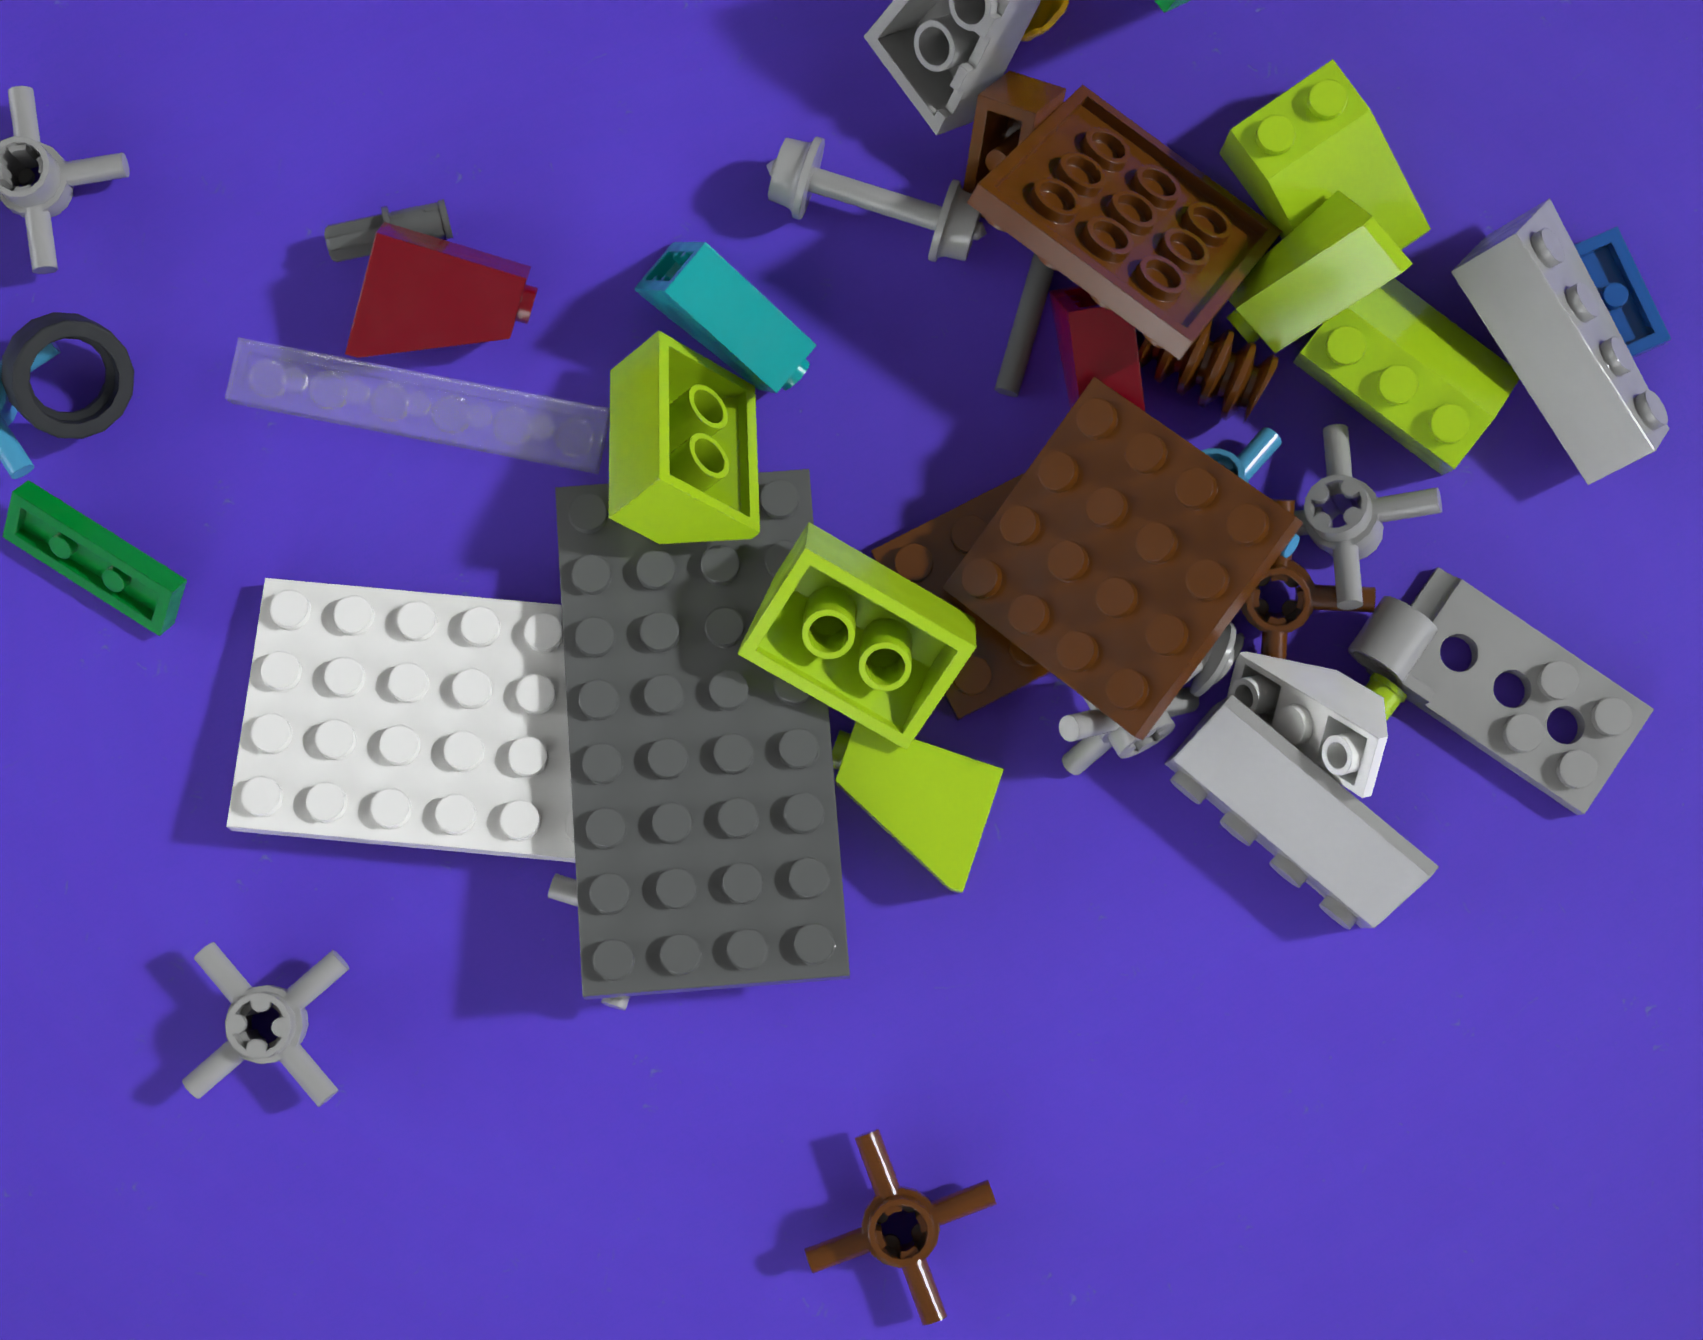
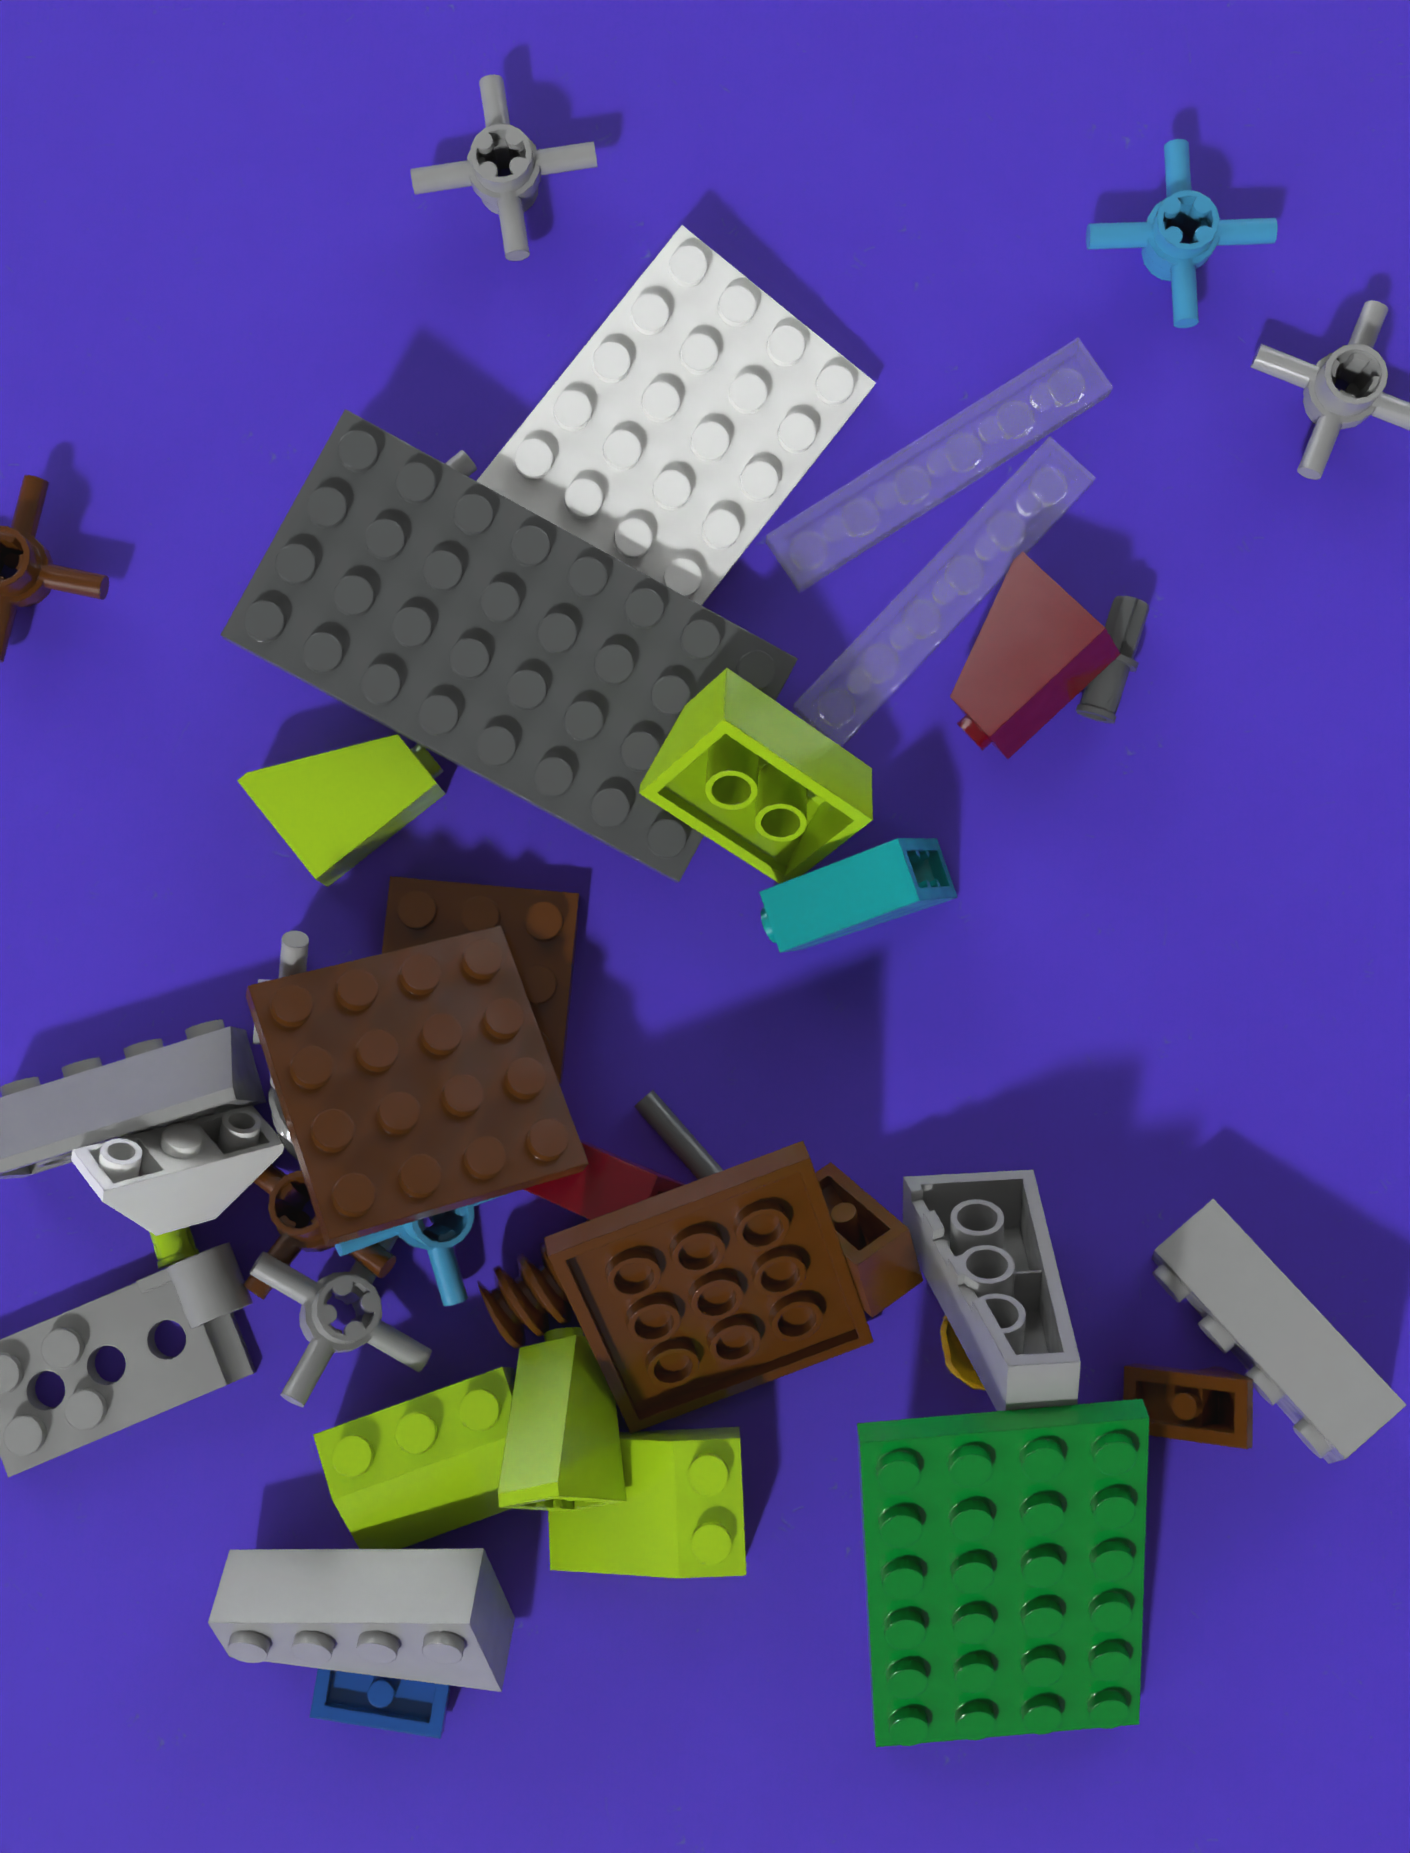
camera: 125 degrees right, 0 degrees up
(93, 557) = (980, 256): green plate -> none
(100, 412) = (1104, 305): black tyre -> none
(306, 479) = (938, 464): none -> clear plate
(798, 175) = (943, 1035): light grey piece -> none
(859, 636) = (498, 823): lime slope -> none

